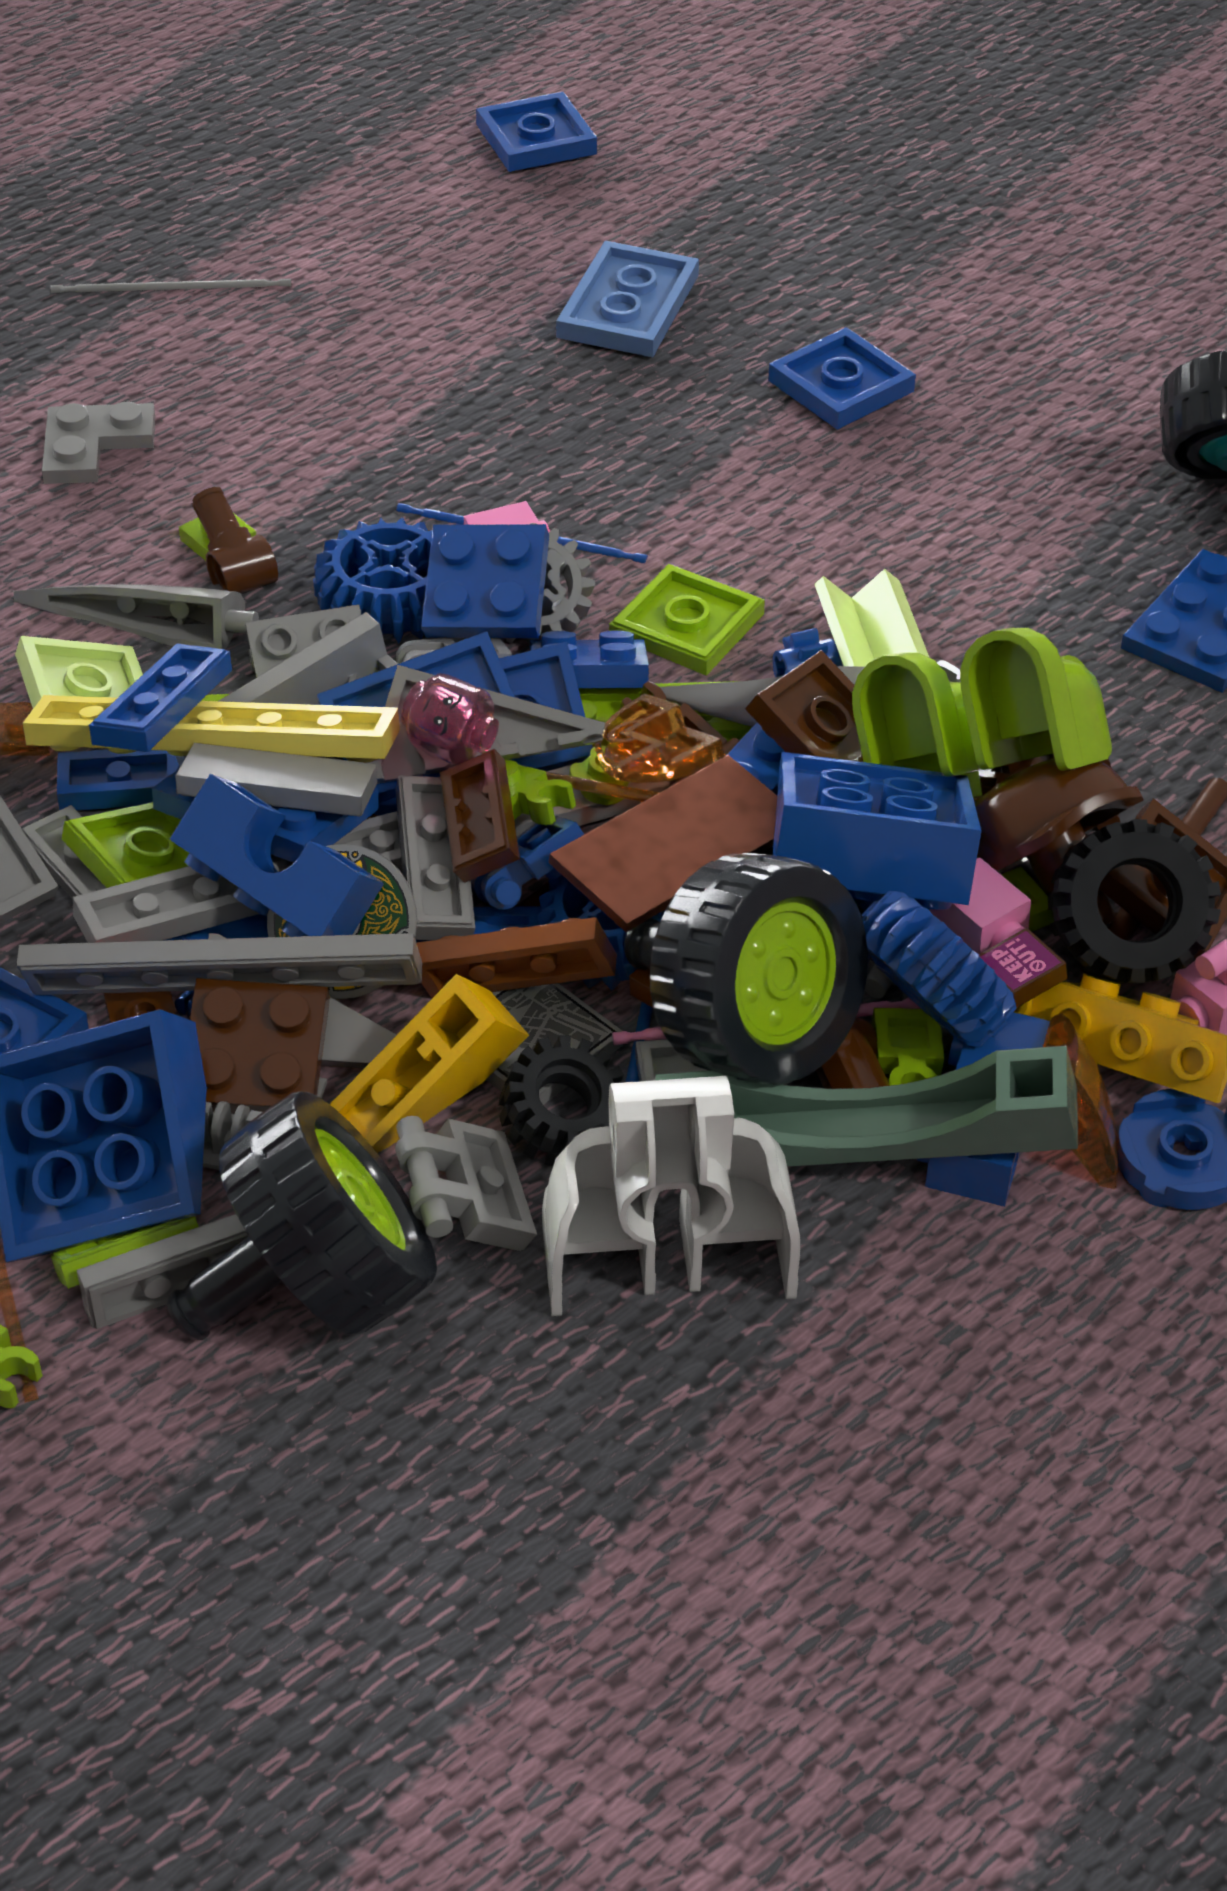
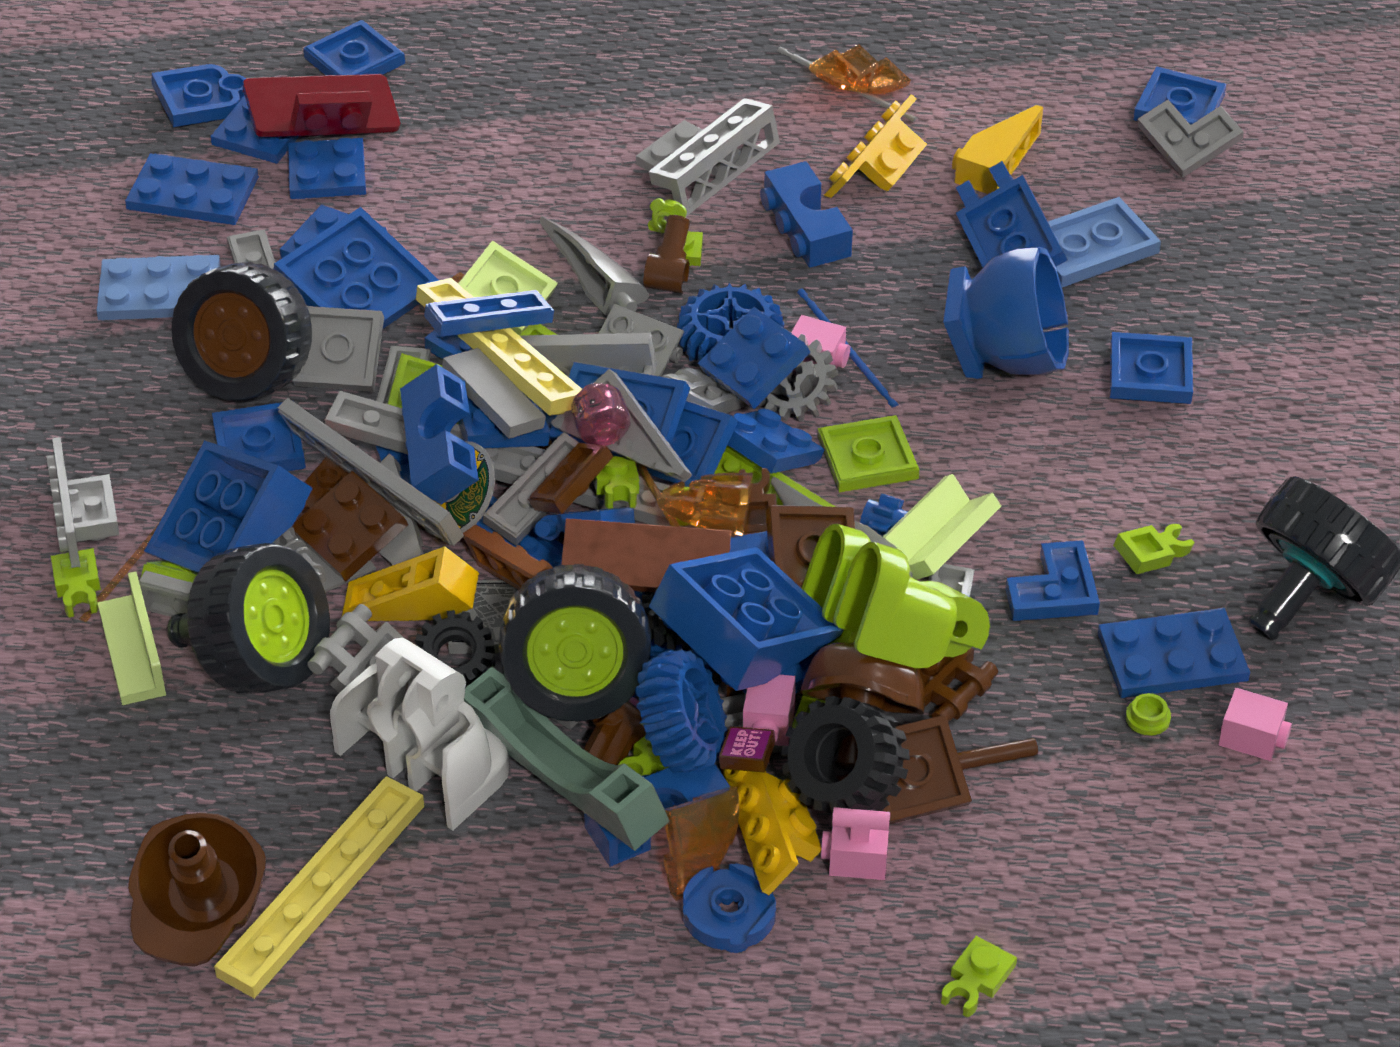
camera: 45 degrees right, 0 degrees up
(139, 415) = (717, 145): none -> light grey fence
(152, 1370) = (132, 646): none -> yellowish green panel
(159, 499) = (660, 210): none -> lime plate
(179, 267) = (859, 72): none -> clear orange brick
(306, 325) = (887, 153): none -> yellow bracket
(354, 438) = (796, 201): none -> blue arch
(431, 268) = (1003, 142): none -> yellow slope
(547, 325) = (1006, 218): none -> blue tile
(593, 163) = (1185, 144): none -> light grey plate
(651, 1585) = (193, 887): none -> reddish brown piece
(685, 389) = (1004, 313): none -> blue plate
(756, 1480) = (319, 887): none -> light yellow plate
(1030, 603) = (1063, 590): none -> blue plate
(1068, 537) = (1148, 550): none -> lime plate

